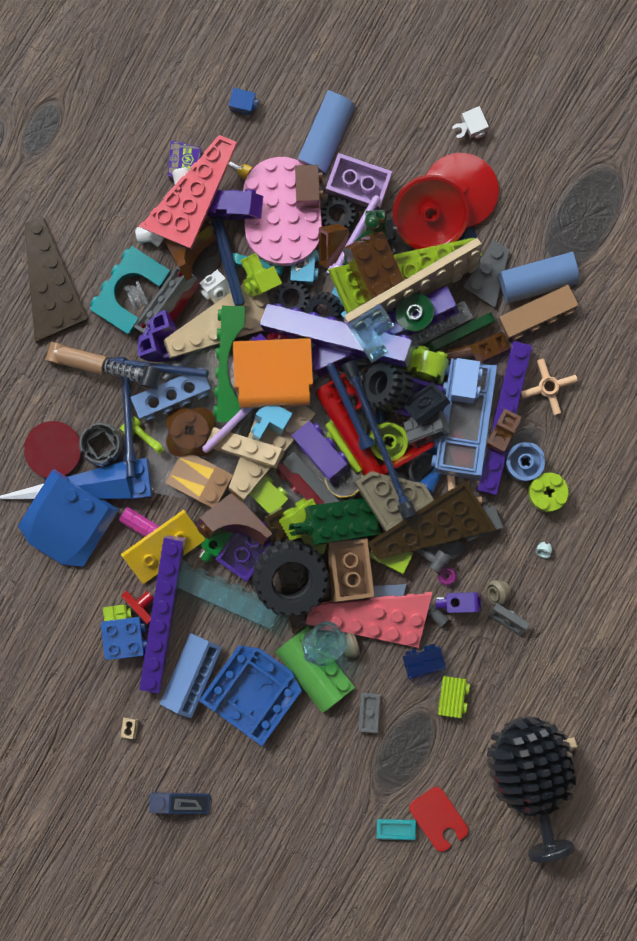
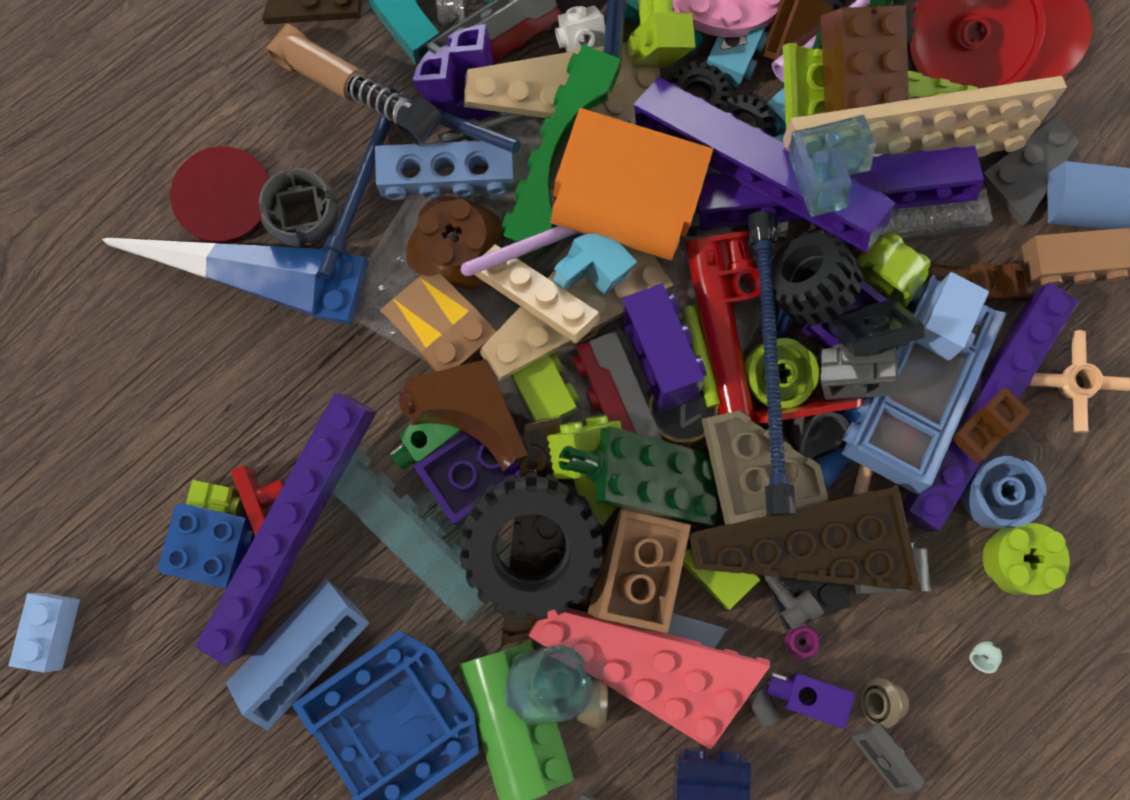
camera: 10 degrees right, 5 degrees down
(57, 711) = (44, 632): none -> light blue piece
(66, 520) = (192, 313): blue wedge -> none
(133, 728) = (163, 712): tan piece -> none
(136, 429) = (367, 208): lime brick -> none
(137, 522) = (312, 363): dark pink axle -> none
(146, 554) = (295, 414): yellow plate -> none
(364, 440) = (744, 354): dark blue piece -> none
(414, 303) = (914, 153): dark green dish -> none
(461, 332) = (966, 241): dark green beam -> none

